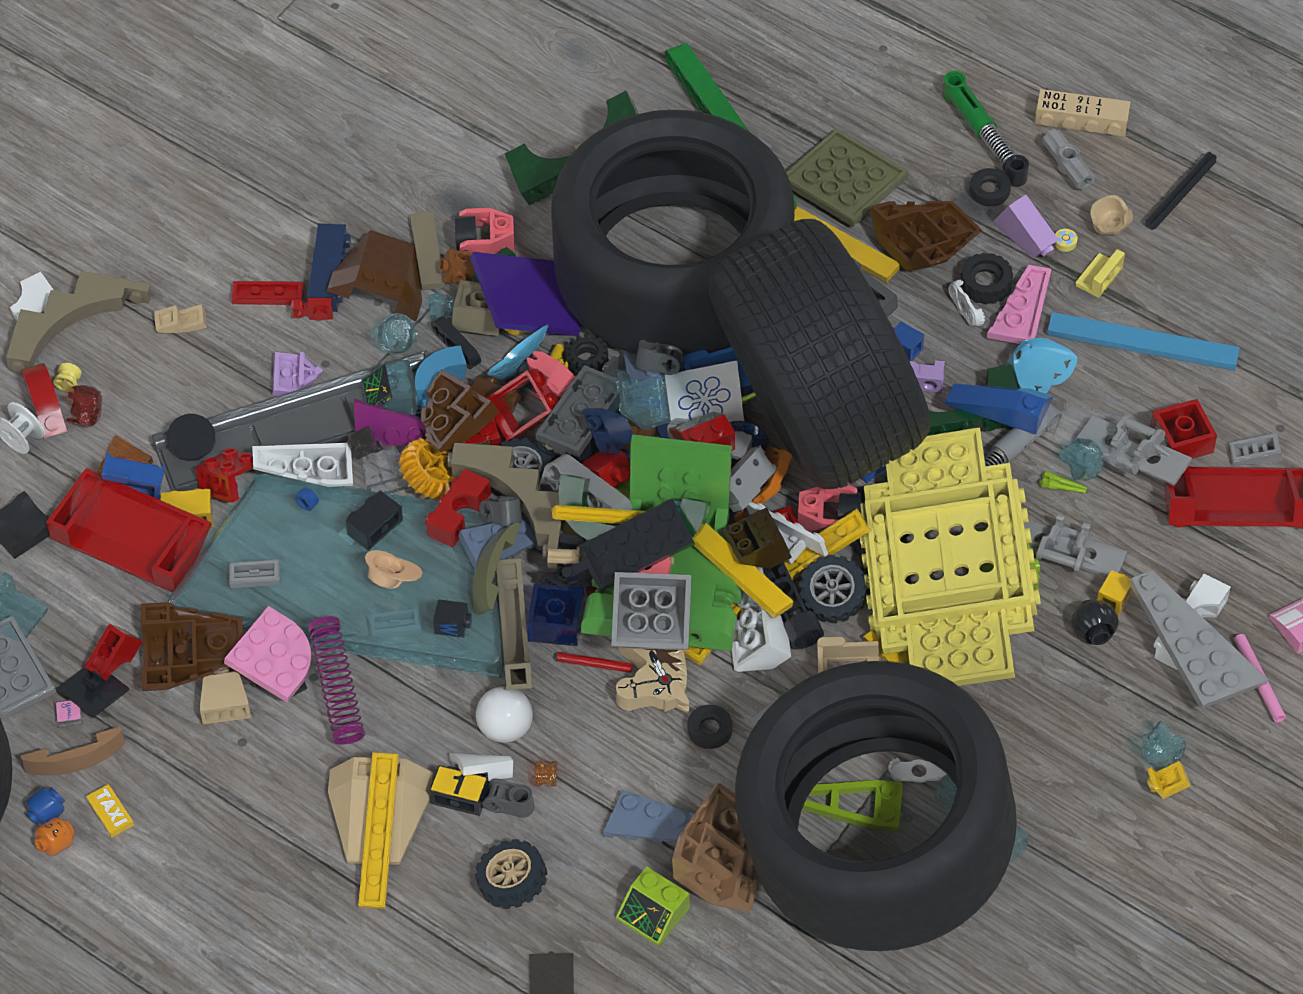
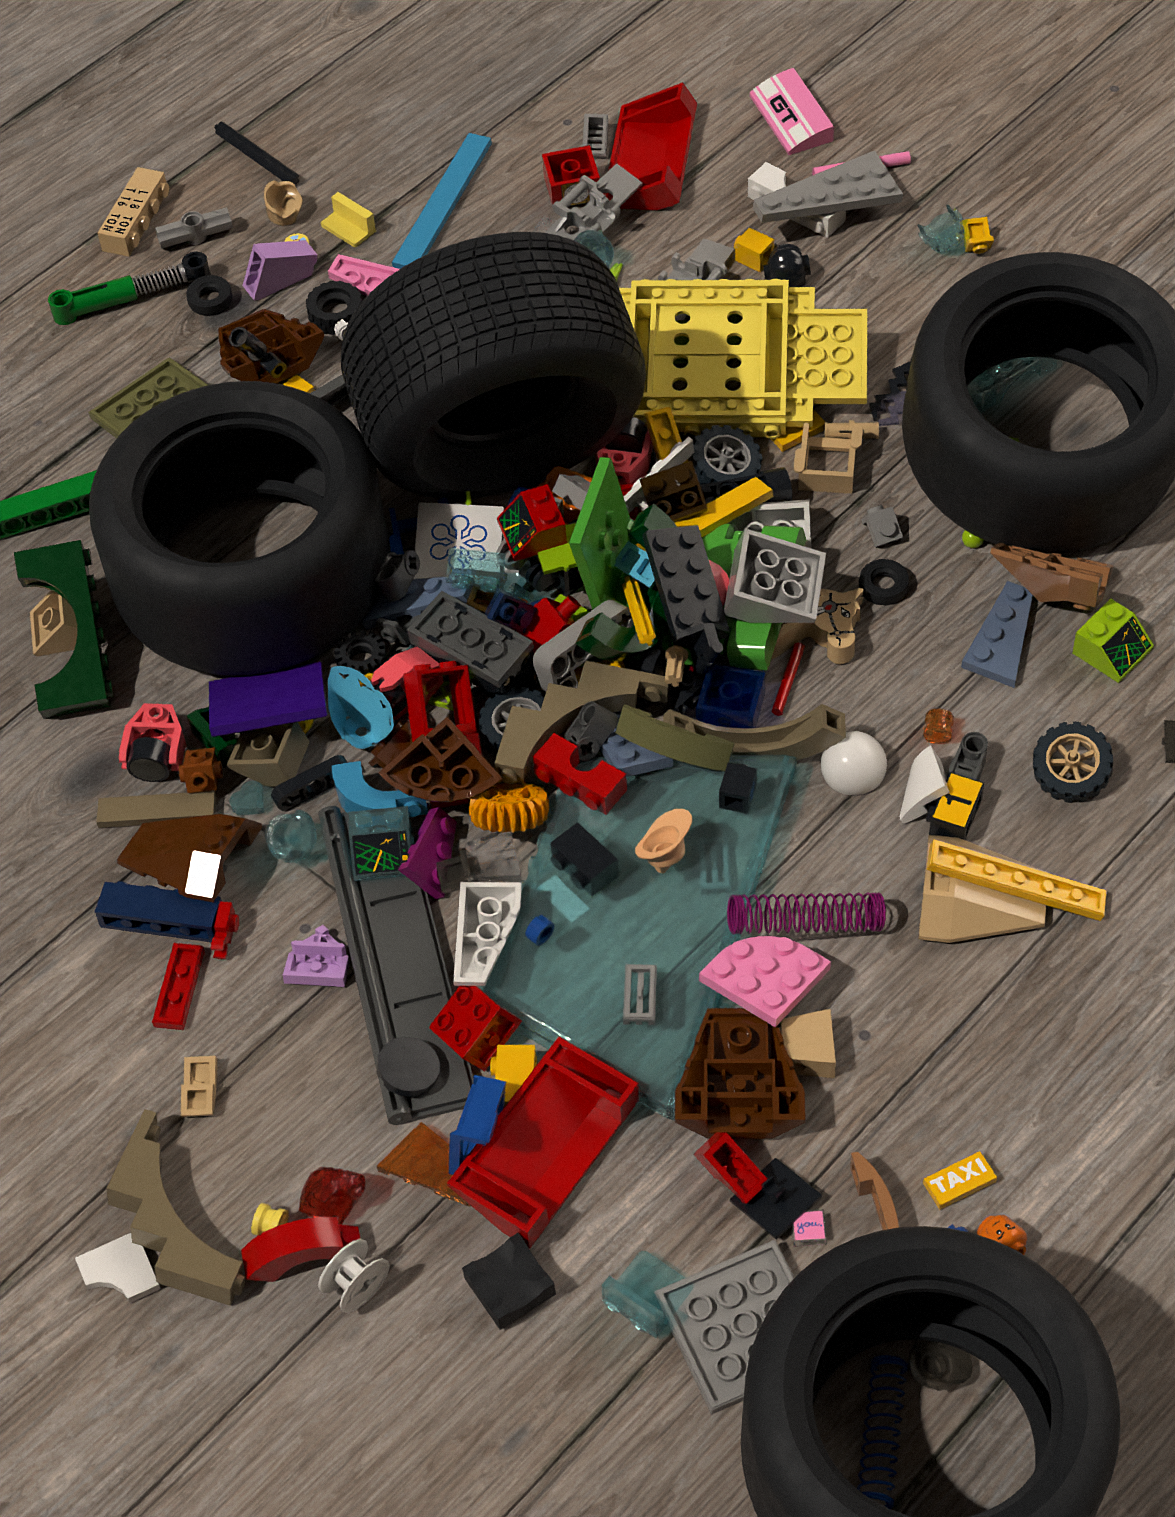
camera: 80 degrees left, 0 degrees up
(899, 223) = (257, 351): none -> black bar

